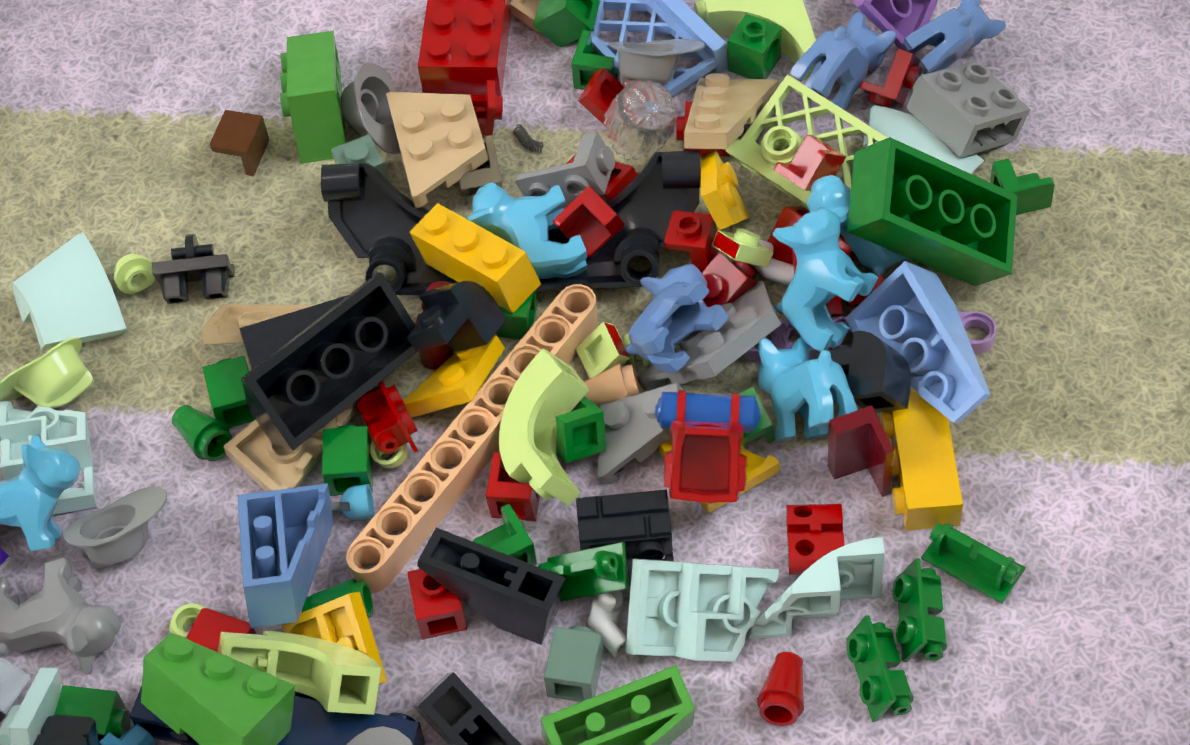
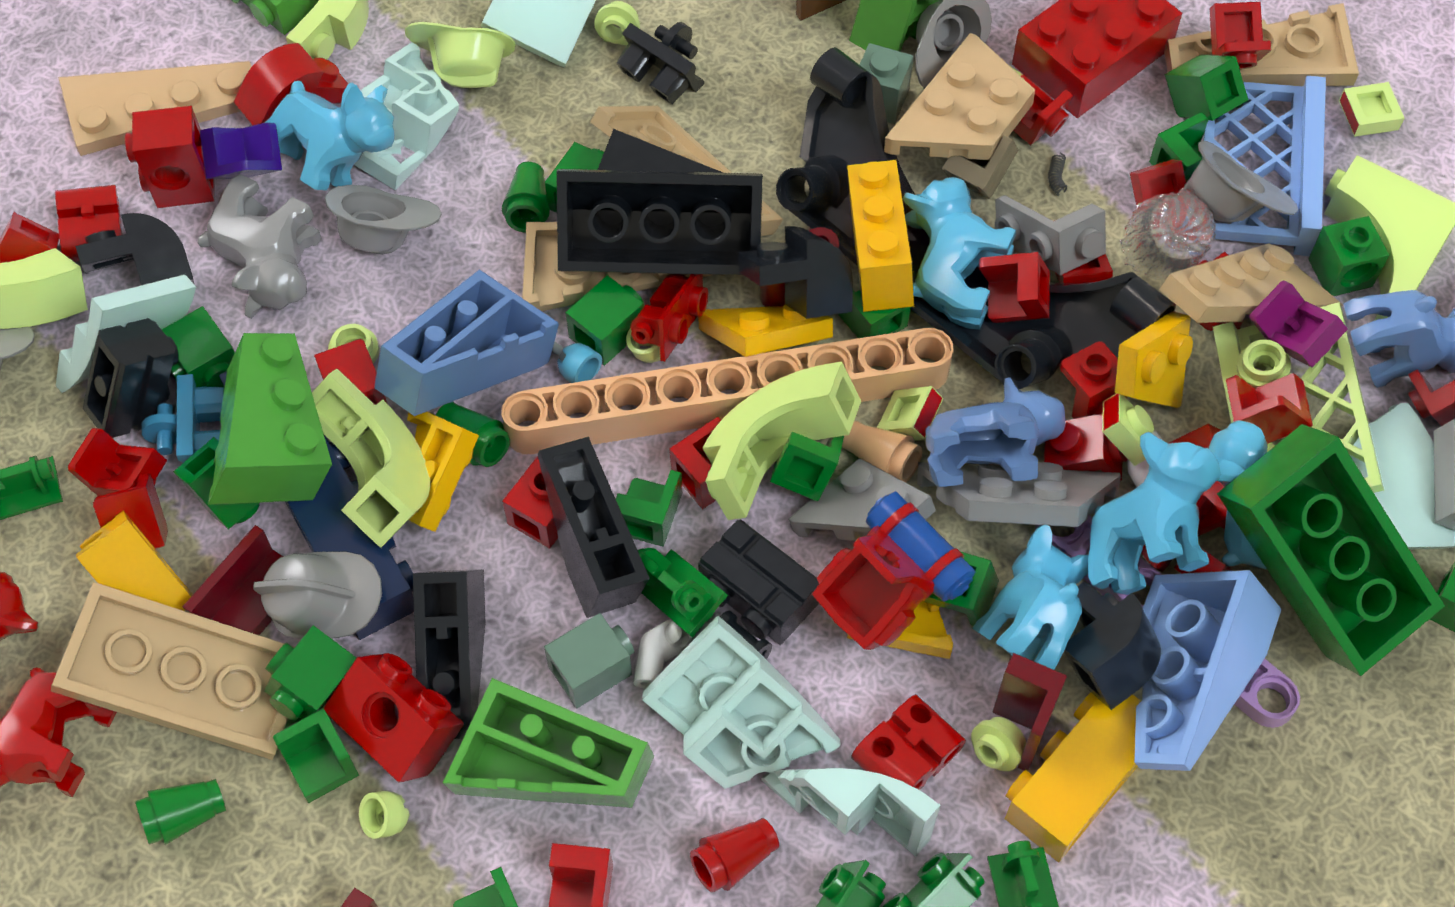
camera: 40 degrees right, 5 degrees up
(781, 105) = (1297, 325): none -> magenta bracket
(860, 489) = (998, 743): none -> yellowish green plate

